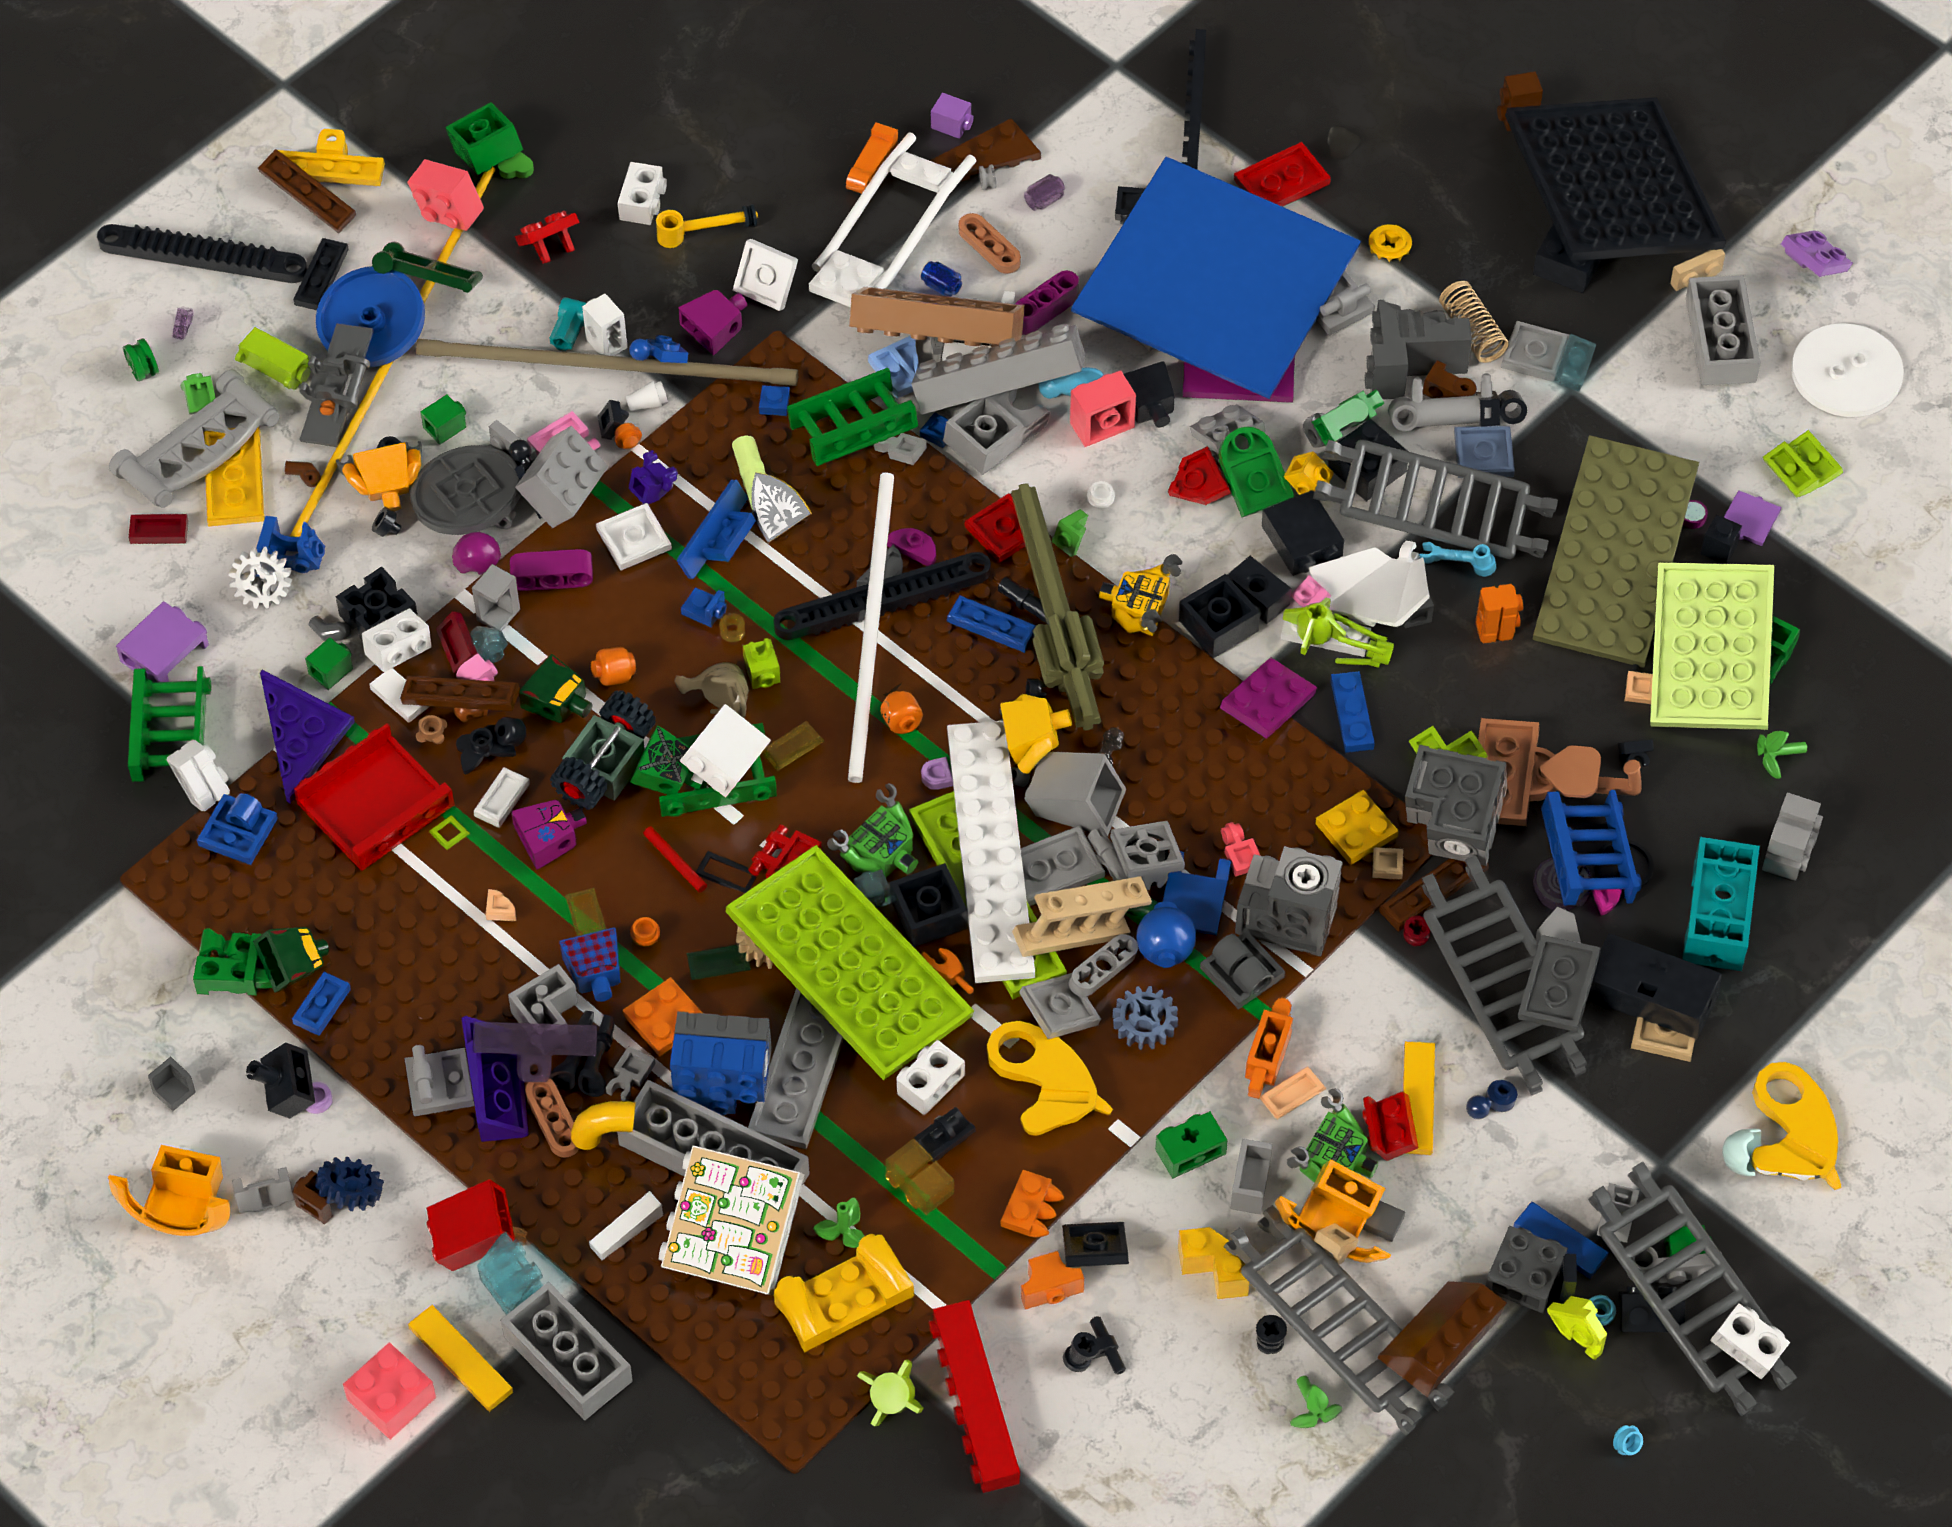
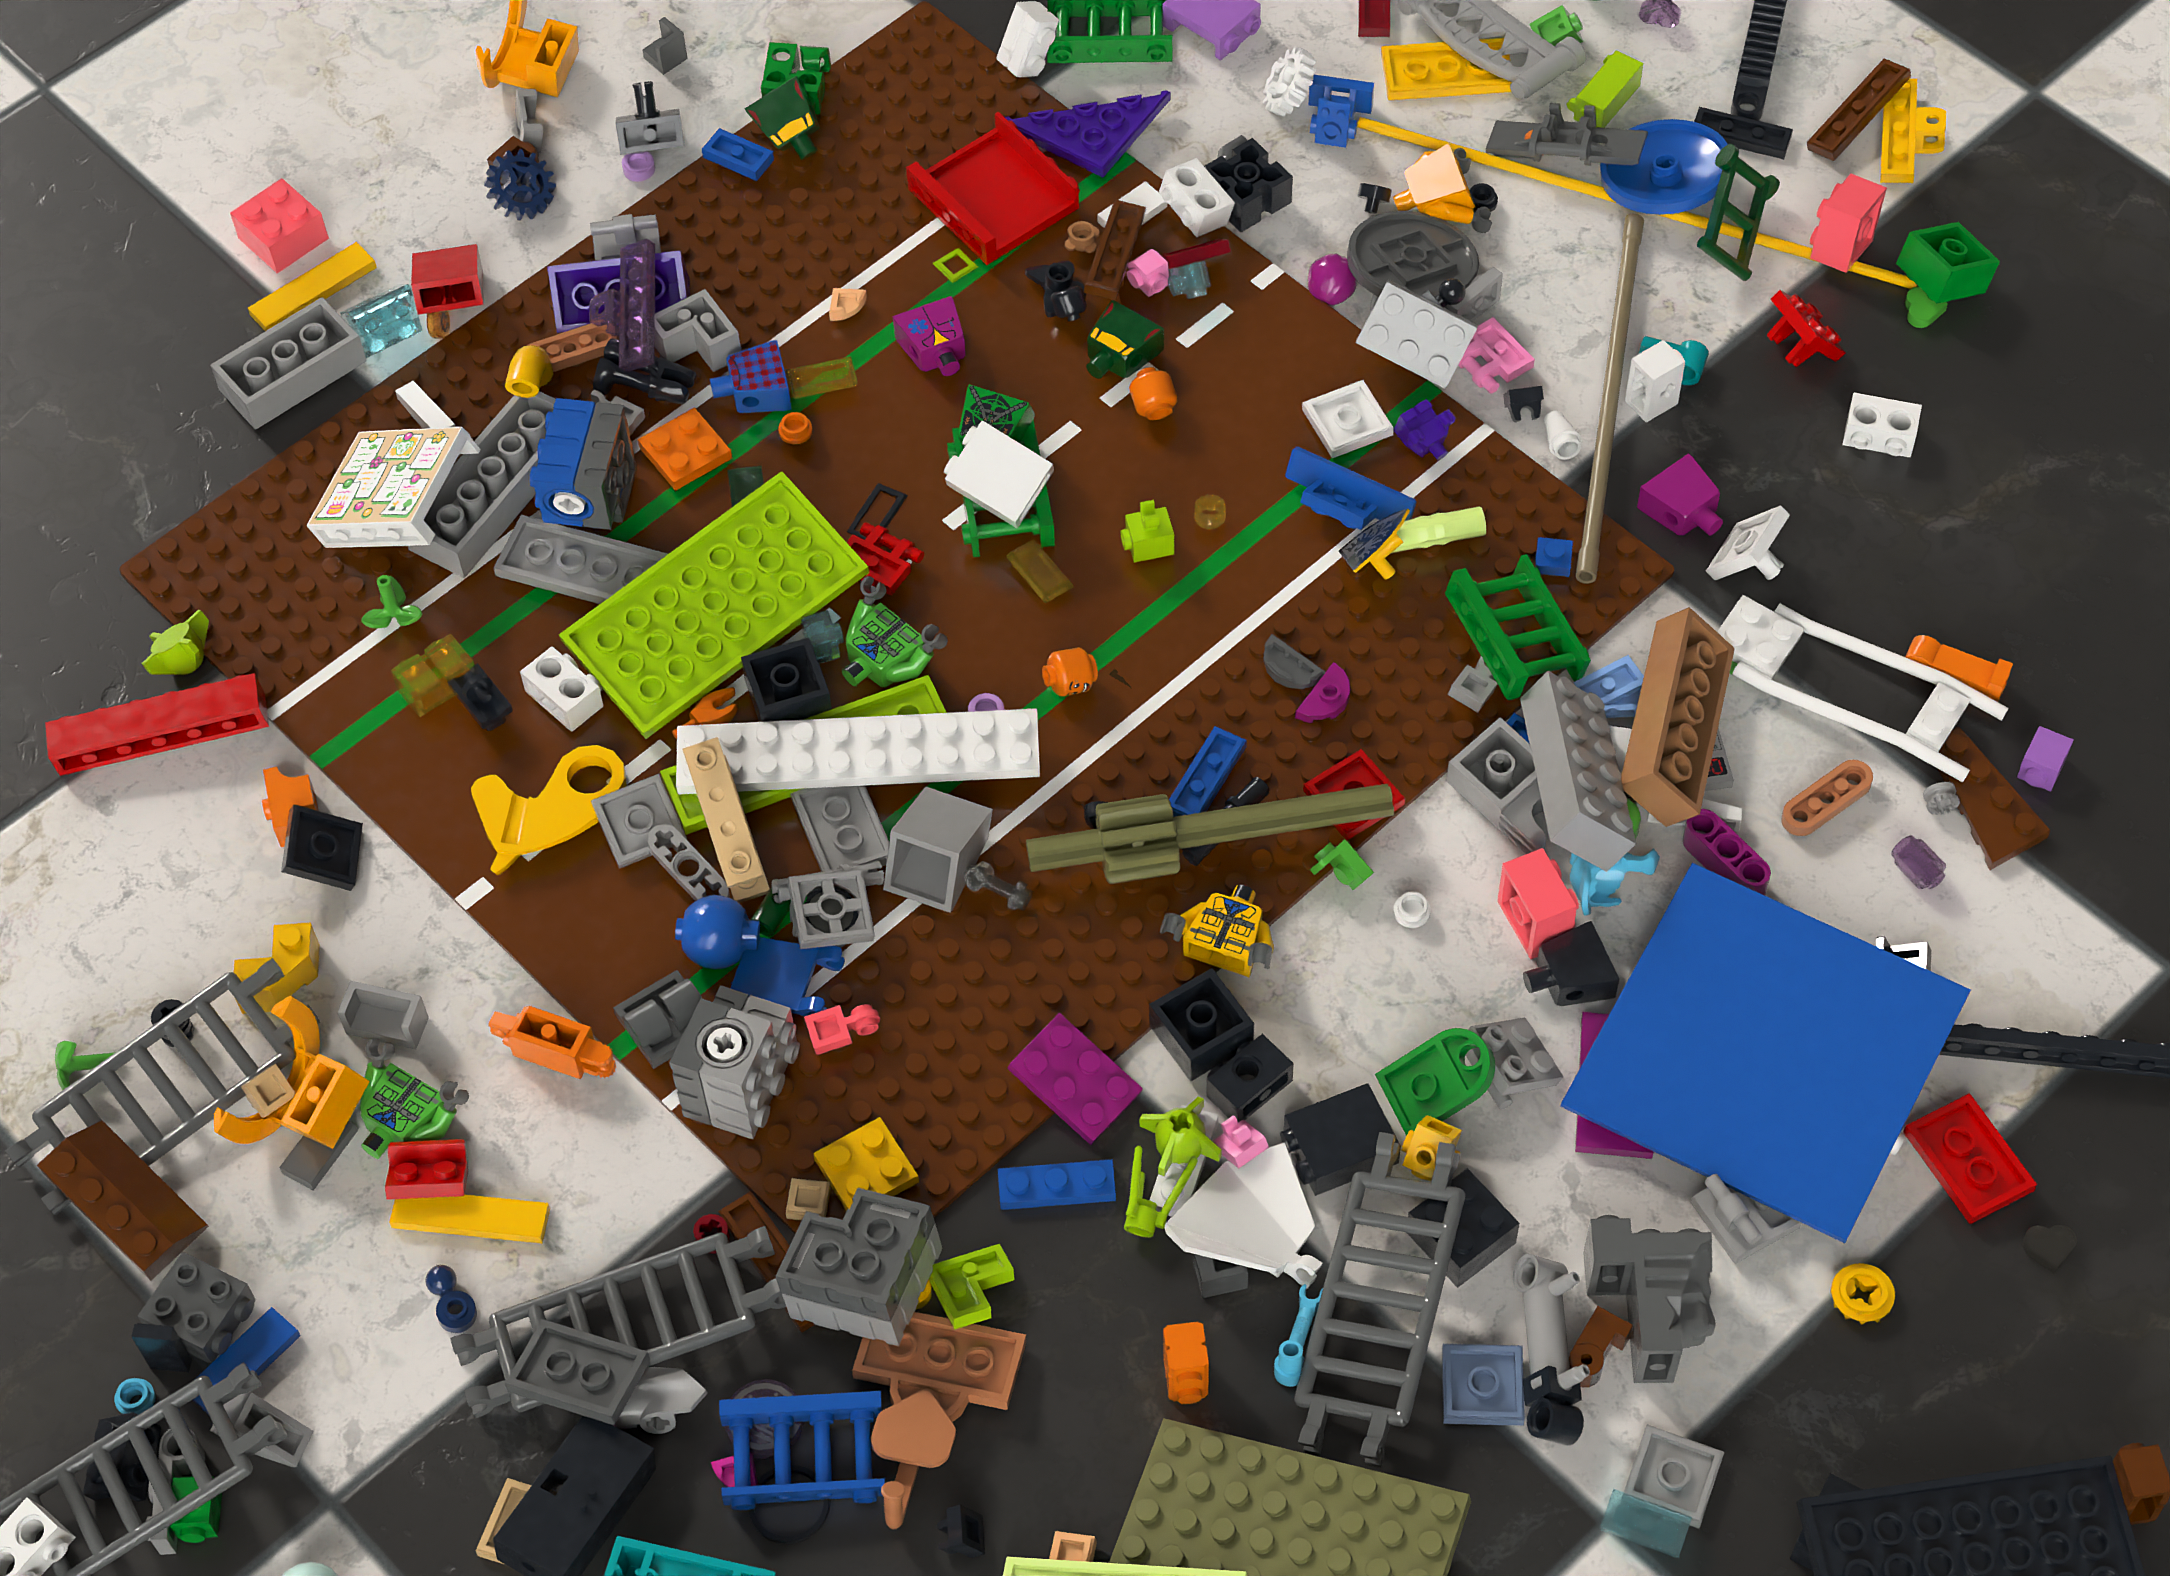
camera: 95 degrees right, 0 degrees up
(237, 828) = (963, 79): blue plate -> none
(305, 470) = (1452, 128): reddish brown arm -> none
(329, 663) = (1178, 147): green brick -> none
(443, 419) = (1522, 242): green brick -> none
(496, 598) = (1250, 277): light grey panel -> none
(501, 797) = (989, 302): white tile -> none
(552, 569) = (1294, 337): magenta beam -> none
(605, 752) = (1020, 370): brick -> none
(627, 436) = (1500, 414): orange plate -> none
(661, 348) = (1620, 442): blue plate -> none
(672, 227) = (1824, 462): yellow piece -> none
(675, 859) = (890, 458): red bar -> none
(704, 606) = (1240, 484): blue bracket -> none
(721, 685) = (1116, 493): dark tan piece -> none
(844, 1293) = (305, 600): yellow piece -> none
(871, 626) = (1194, 637): white piece -> none
(896, 592) = (1246, 660): black gear -> none
(941, 278) = (1761, 740): clear blue brick -> none
(1029, 1204) = (388, 786): orange plate -> none
(1031, 732) = (1016, 787): yellow torso -> none
(1087, 1347) = (200, 860): black piece -> none
(1145, 1017) = (604, 908): sand blue gear -> none
(1191, 1144) = (440, 956): green brick -> none
(1199, 479) = (1430, 1015): red plate -> none
(1292, 1092) = (497, 1073): light nougat tile -> none
(1349, 414) = (1531, 1199): hips -> none
(1458, 302) = (1752, 1348): tan piece -> none
(1578, 1321) = (99, 1359): neon yellow plate -> none

